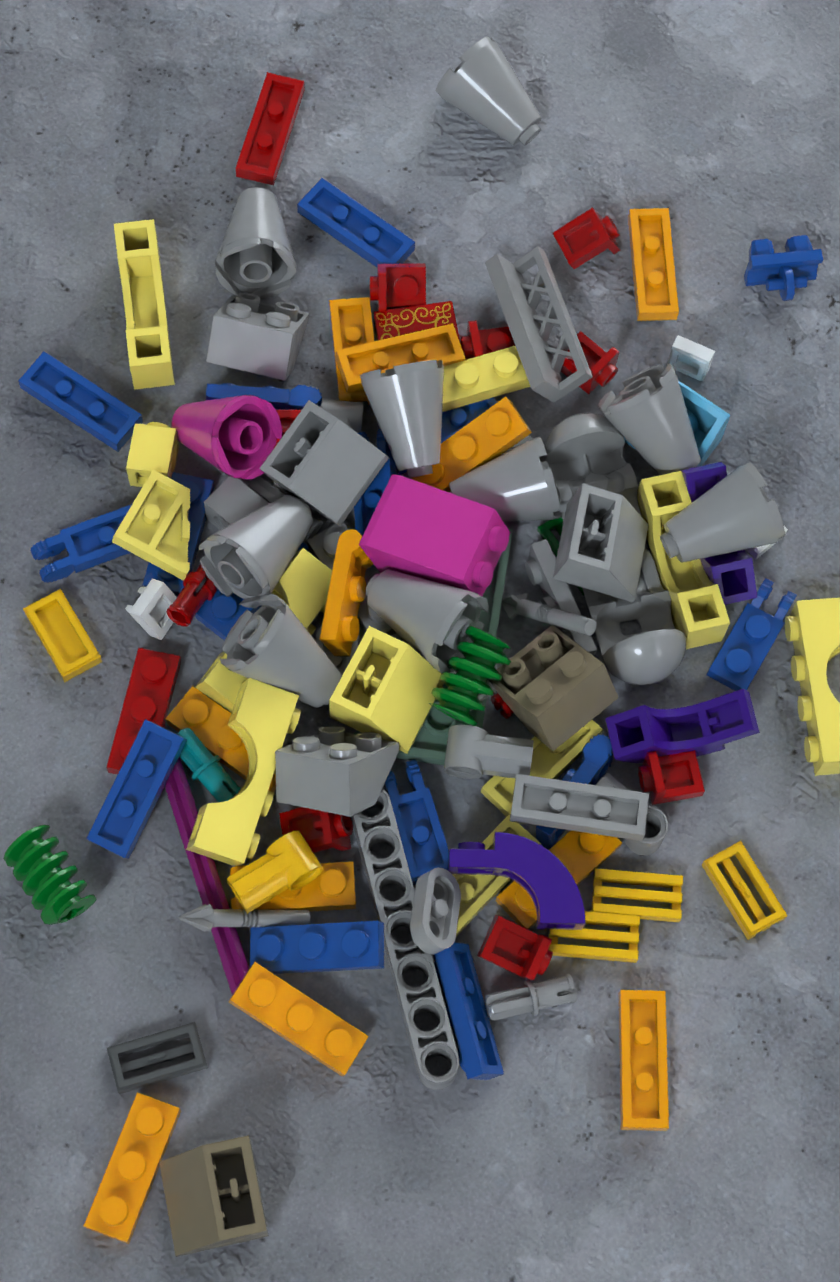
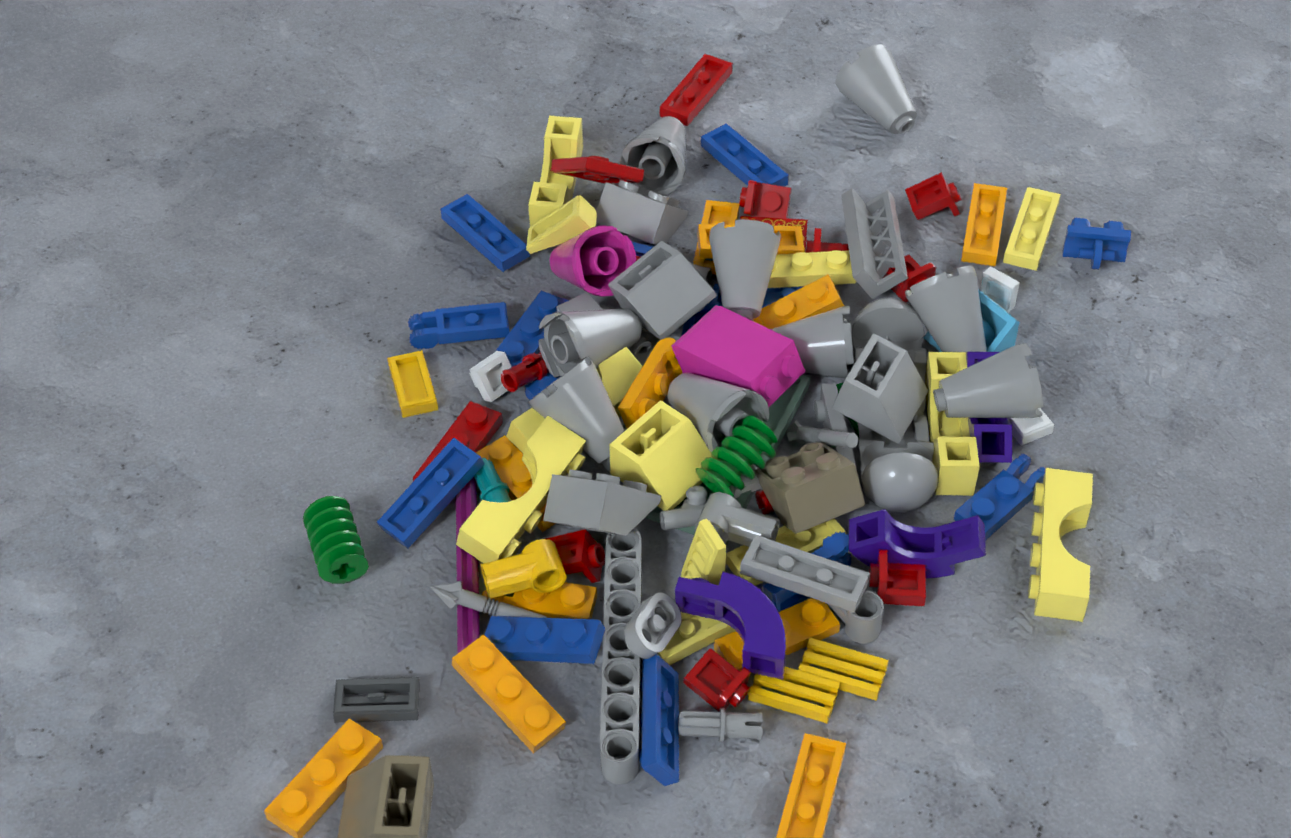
camera: 20 degrees right, 20 degrees down
(151, 448) = (527, 275): light yellow brick -> none
(158, 525) = (514, 315): light yellow wing -> none
(195, 295) = (597, 170): none -> red plate
(199, 382) = (561, 225): none -> light yellow slope
(418, 824) = (660, 564): blue hinge -> none
(431, 747) = (689, 511): none -> light grey arm
(465, 811) = (706, 555): none -> light yellow slope
(707, 259) = (1031, 228): none -> light yellow plate
(763, 923) = (952, 714): yellow tile -> none

